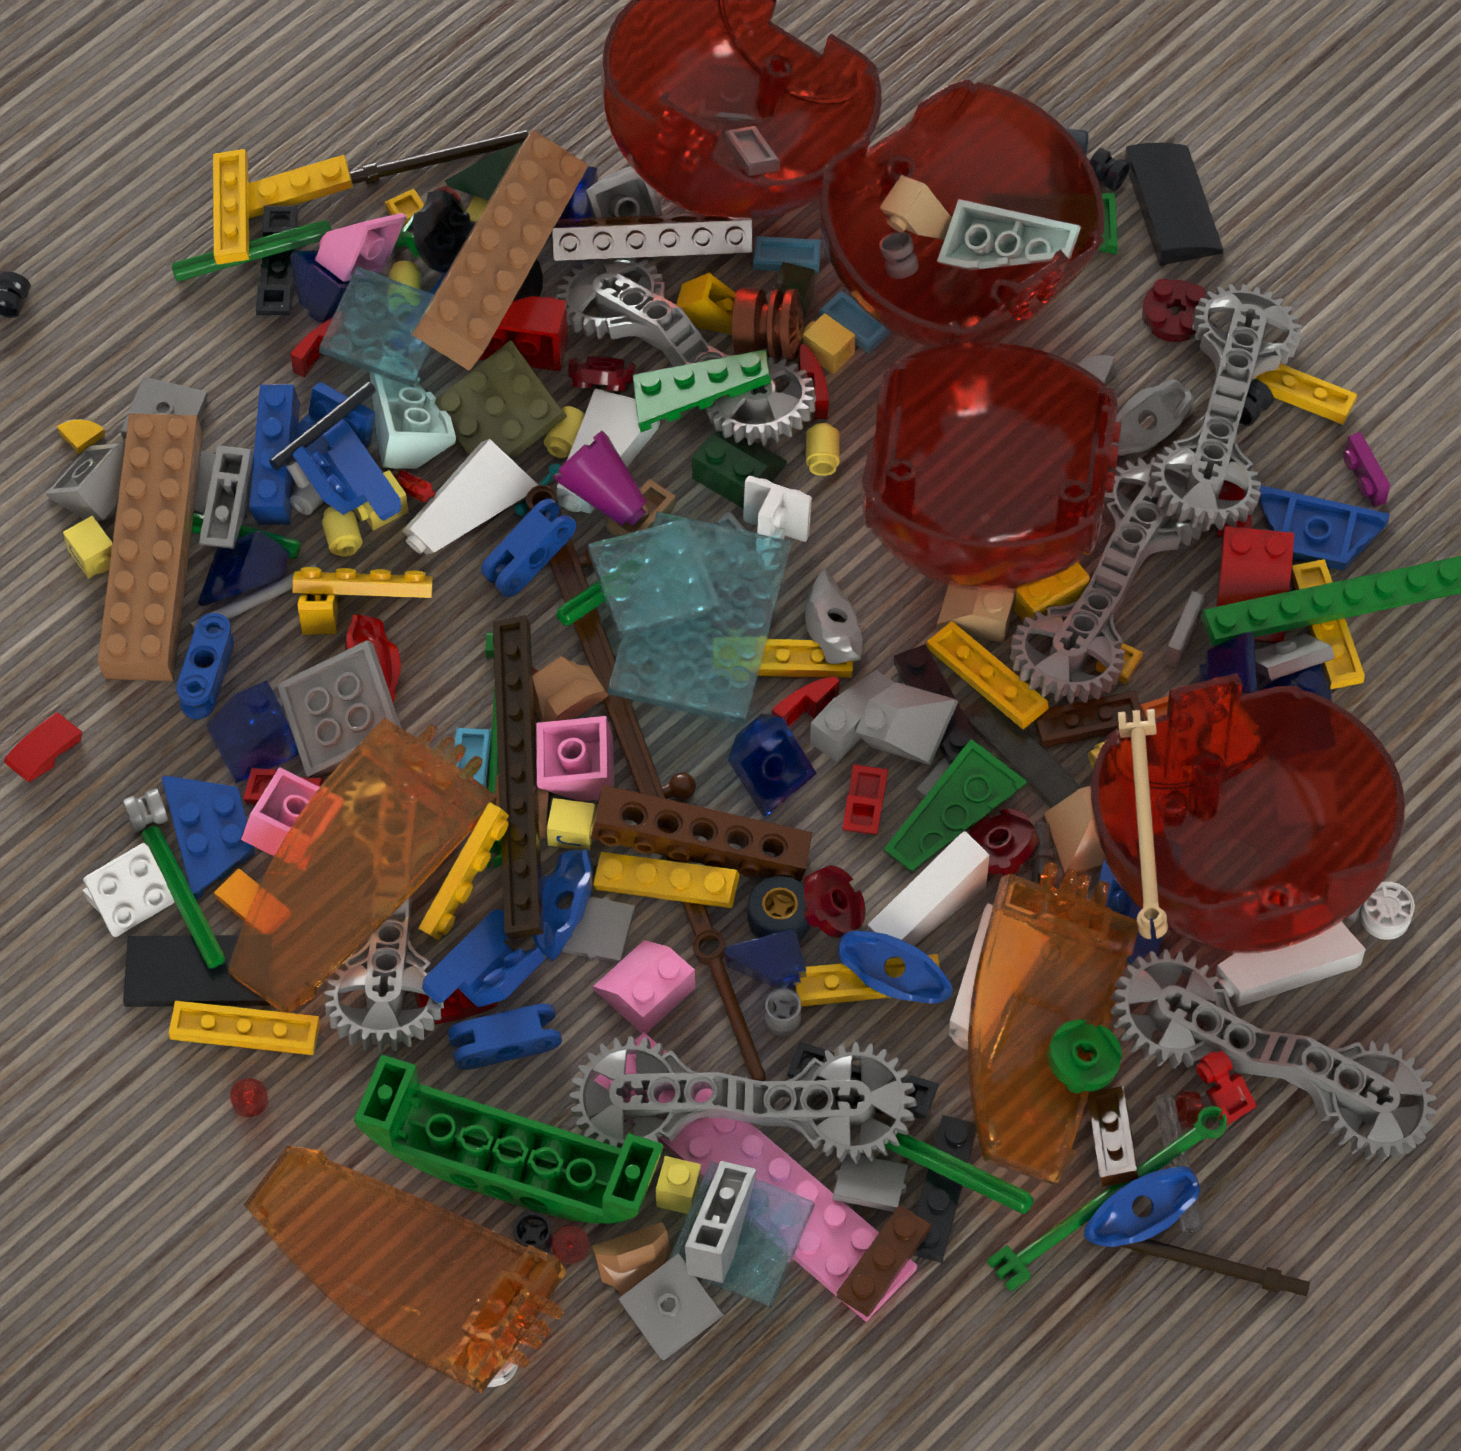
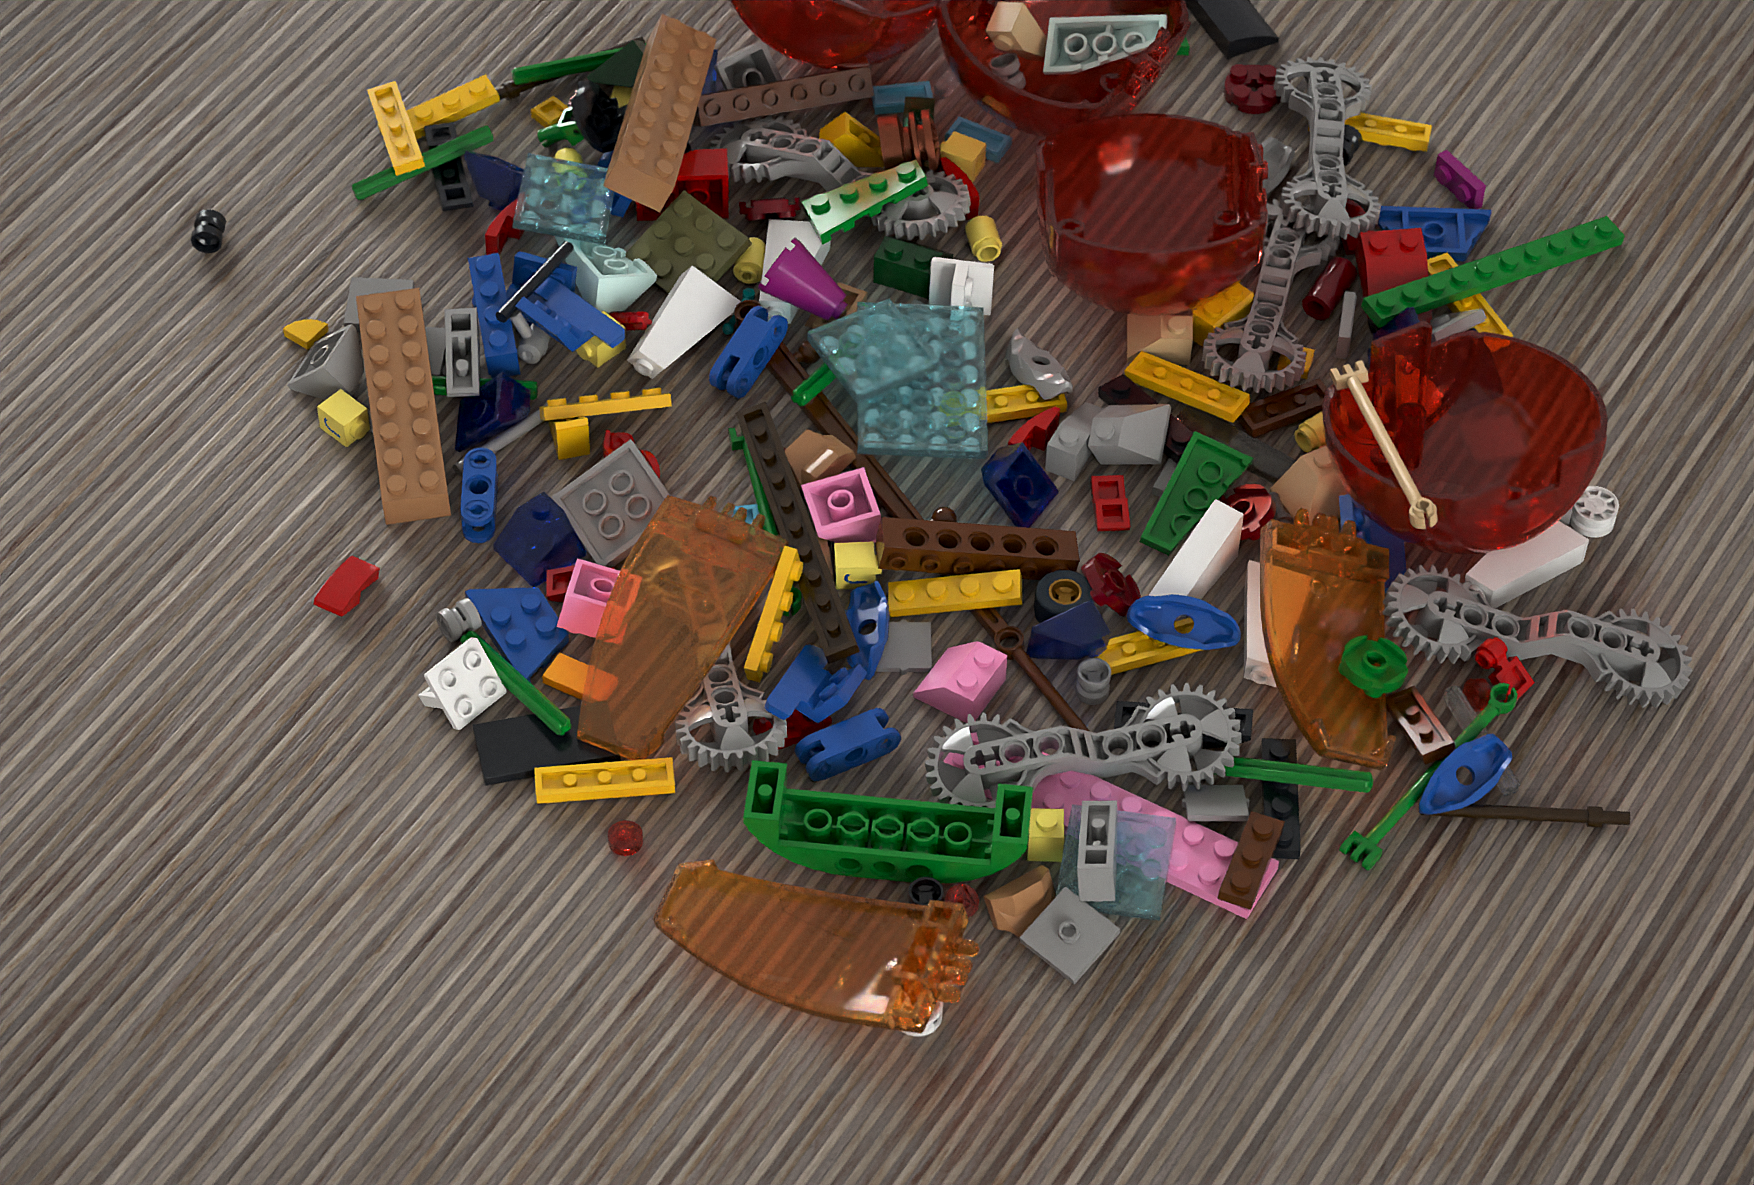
camera: 15 degrees left, 10 degrees down
(341, 532) = (571, 369): light yellow brick -> none
(360, 245) = (522, 135): bright pink slope -> none
(435, 157) = (561, 67): none -> green axle
(1181, 579) = (1329, 288): none -> dark red brick

